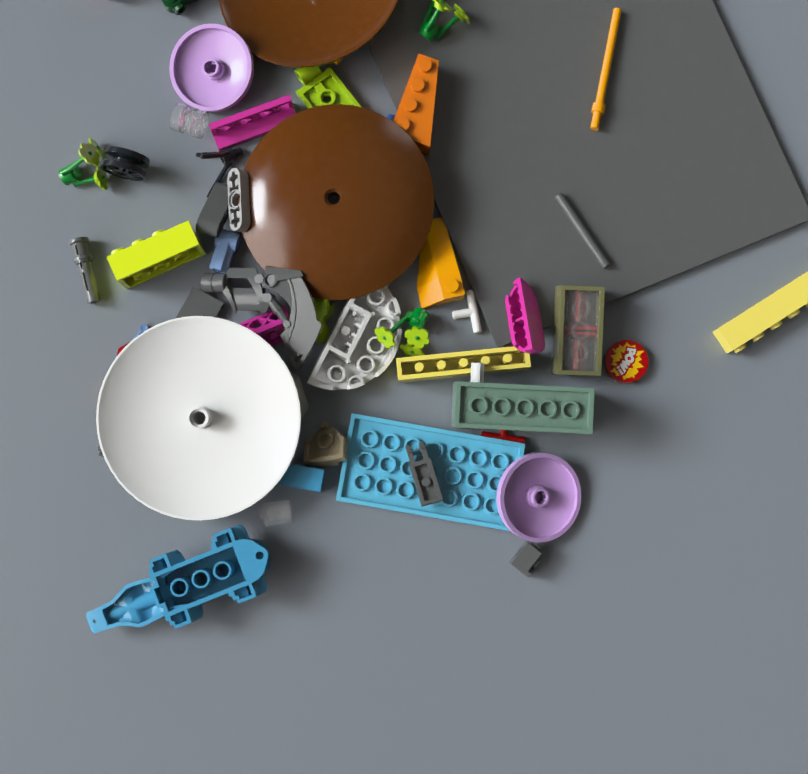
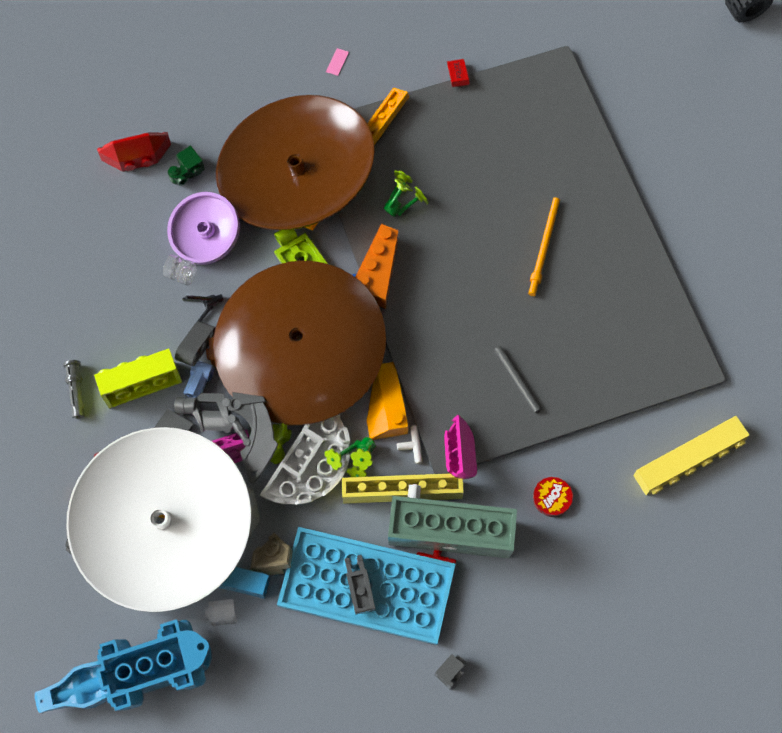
camera: 10 degrees right, 15 degrees down
(89, 153) = (73, 307): plant -> none
(125, 163) = (120, 301): black wheel -> none
(238, 185) = (214, 345): light grey beam -> none
(251, 123) = (232, 274): dark pink fence -> none
(539, 497) = (465, 613): lavender dish -> none
(578, 330) = (508, 464): clear brick -> none

